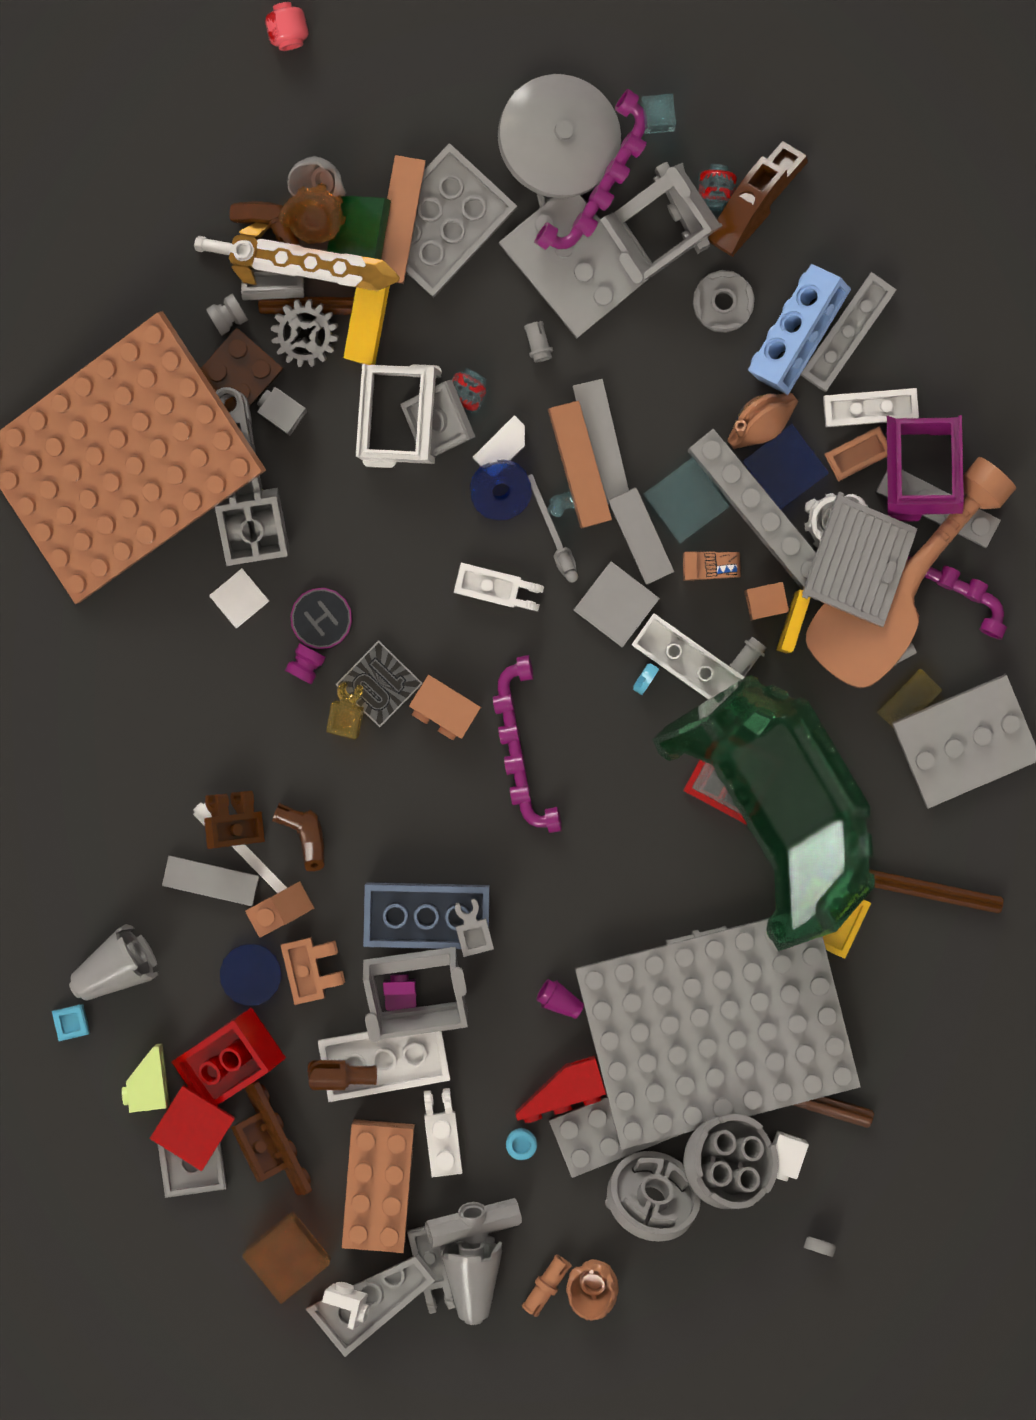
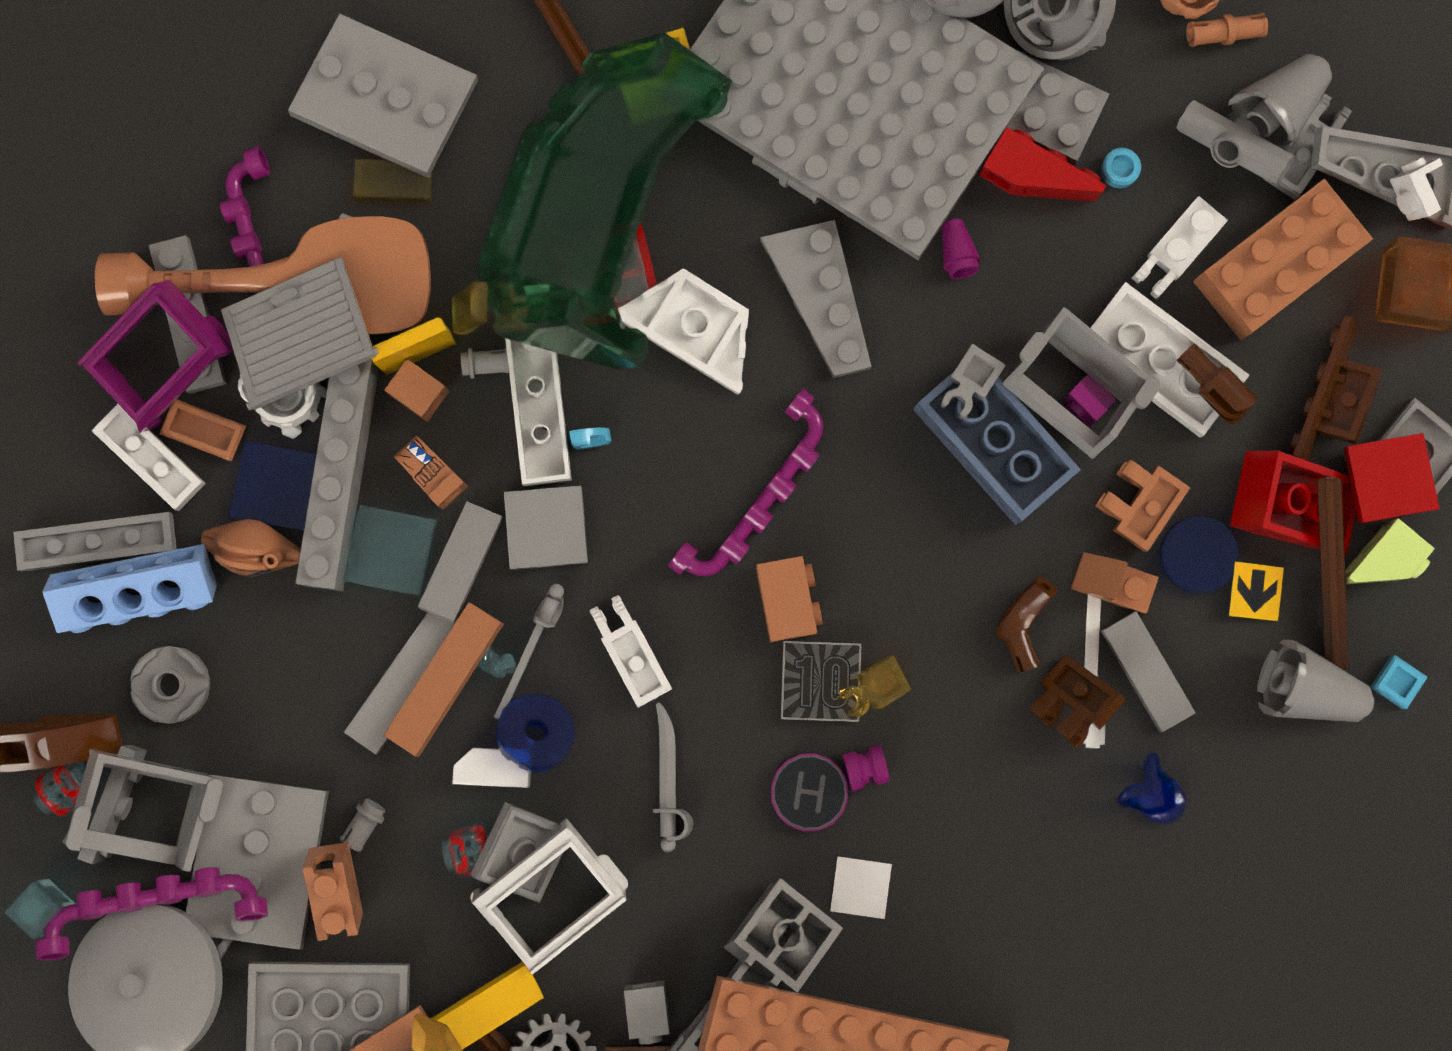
camera: 135 degrees left, 5 degrees down
(134, 818) = (1158, 798): none -> clear blue piece
(169, 1041) = (1333, 571): none -> reddish brown axle
(198, 988) = (1256, 591): none -> yellow sticker
(399, 539) = (668, 785): none -> light grey sword
(514, 292) = (333, 891): none -> nougat brick
(616, 898) = (818, 281): none -> light grey wing
(657, 800) = (693, 325): none -> white wing
(785, 675) = (469, 308): none -> clear yellow tile

